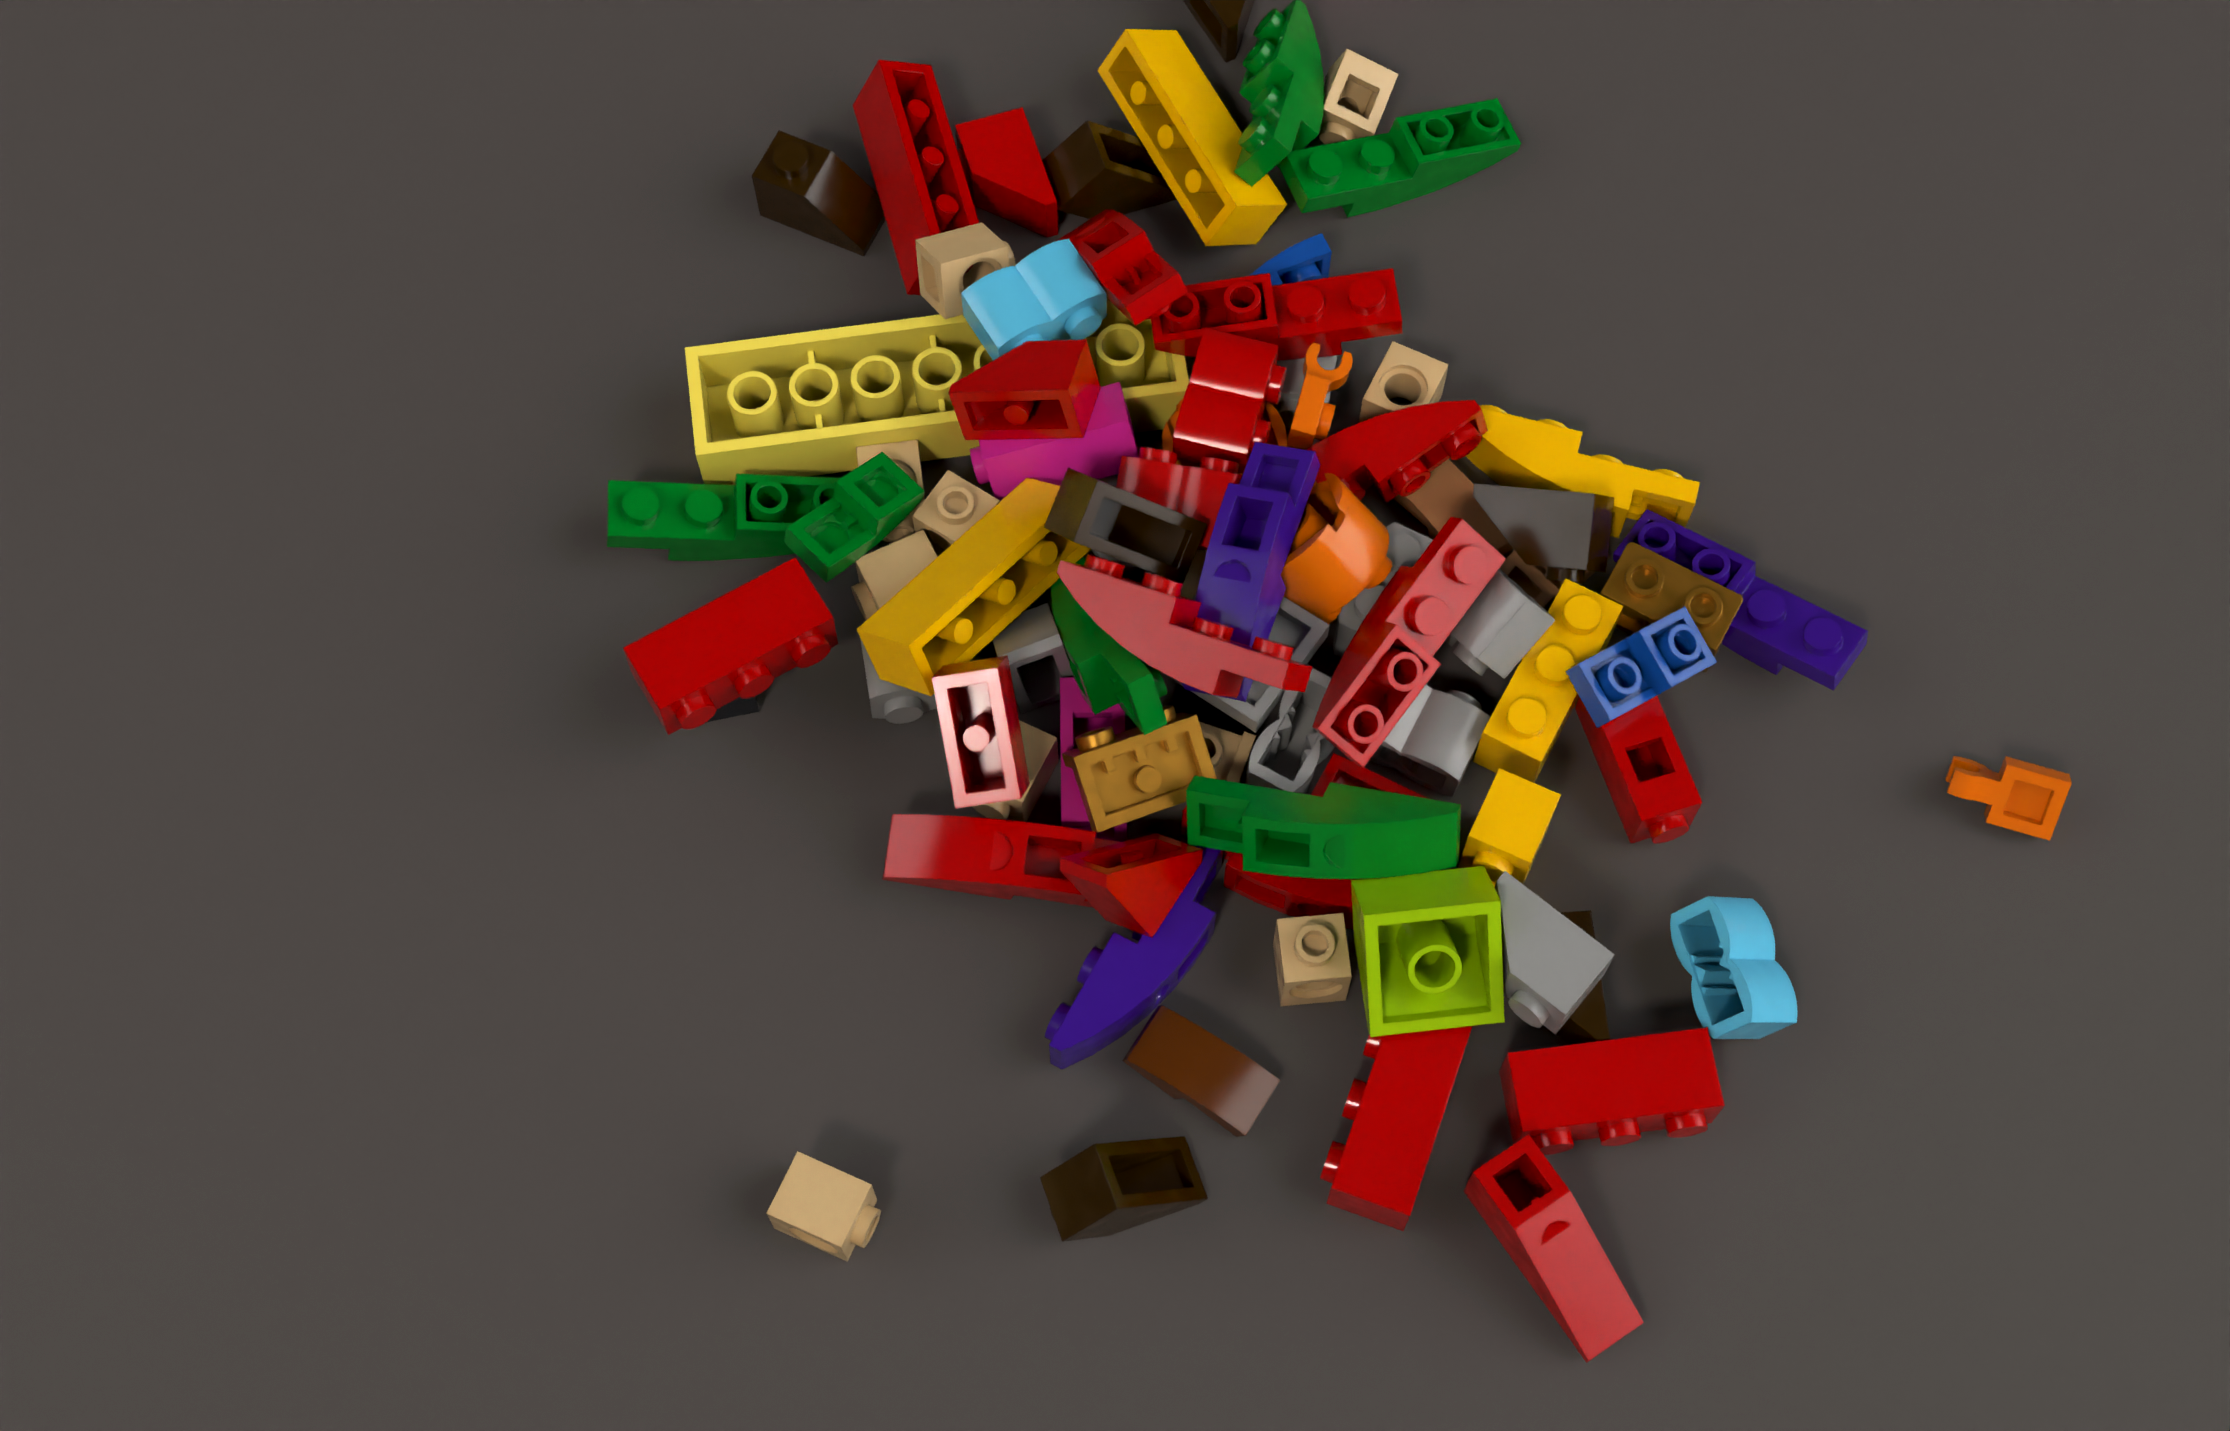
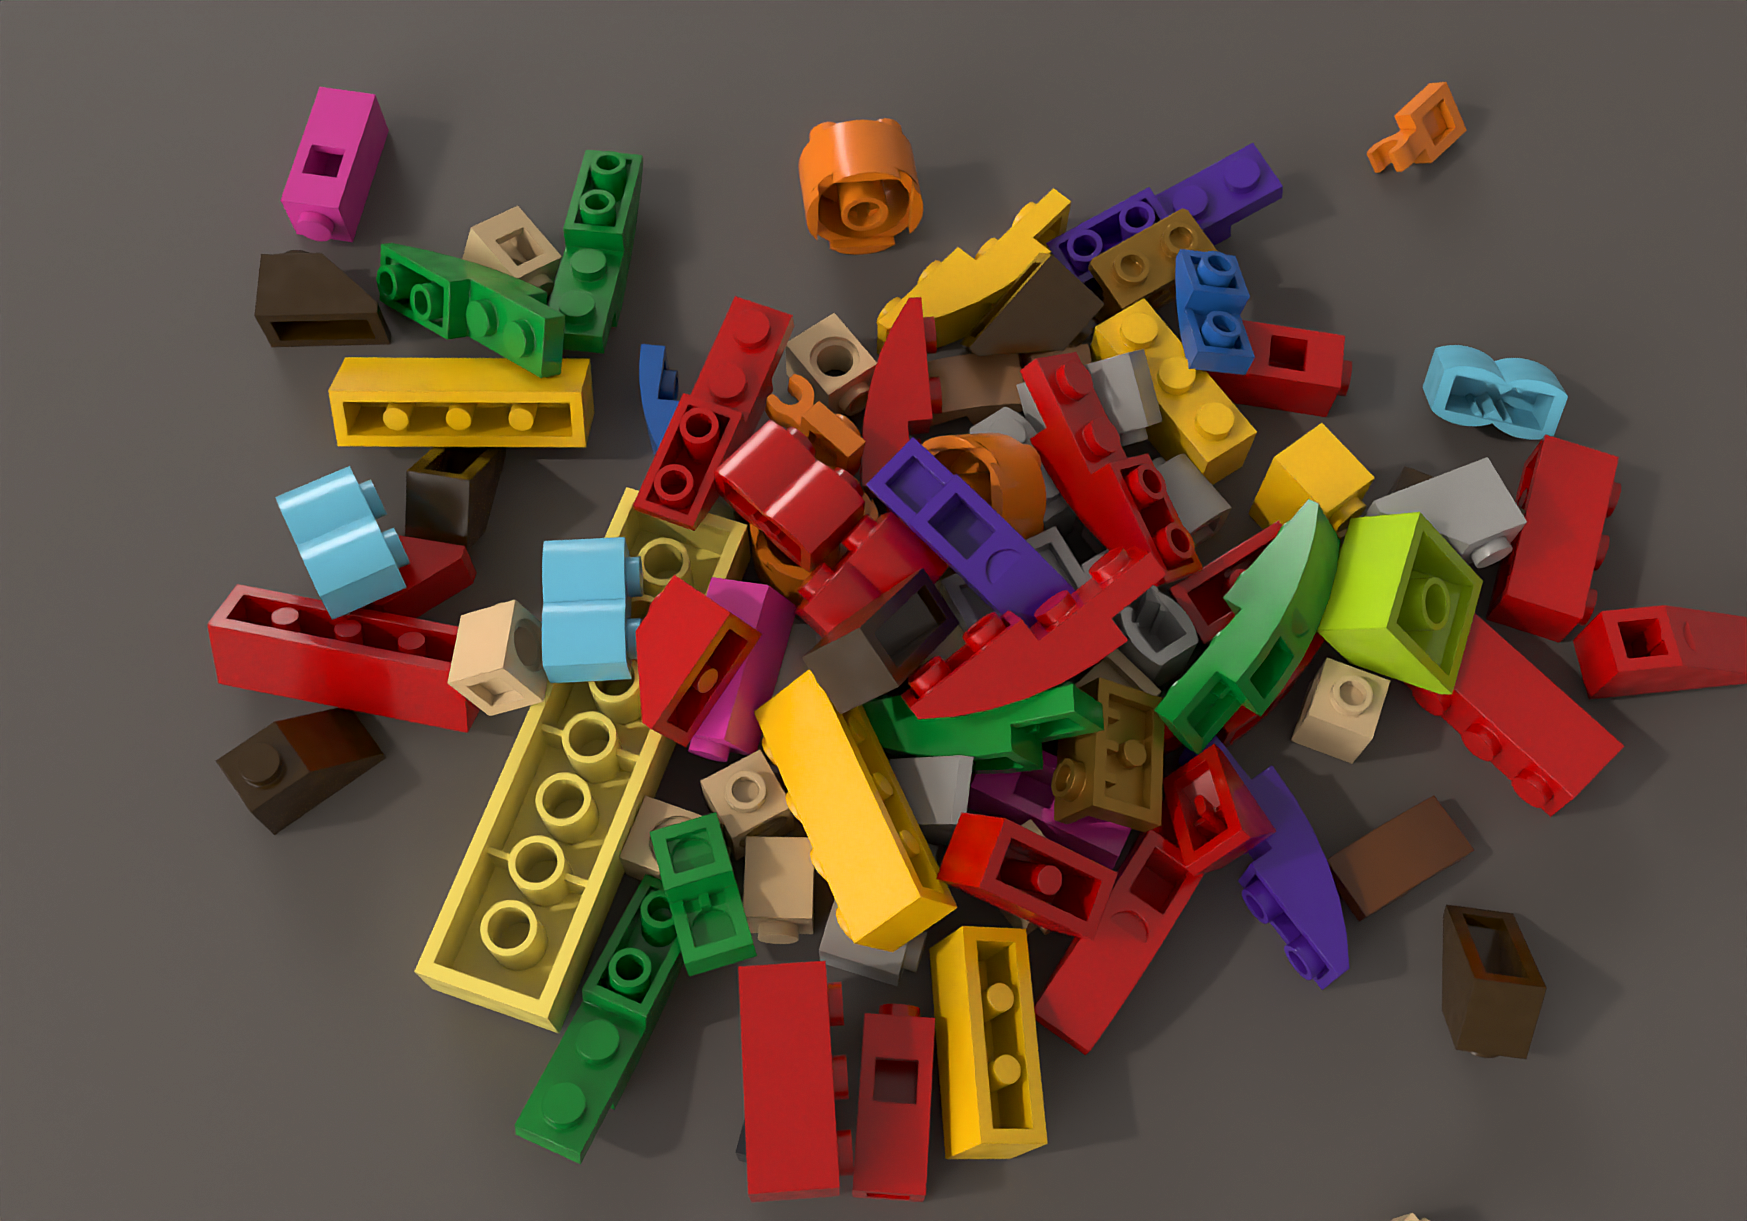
camera: 65 degrees left, 0 degrees up
(768, 752) = (894, 1105): none -> red brick
(848, 792) = (987, 1044): none -> yellow brick
(999, 110) = (342, 541): none -> medium azure brick
(1127, 265) = (584, 506): red slope -> none
(1597, 323) = (859, 185): none -> orange brick

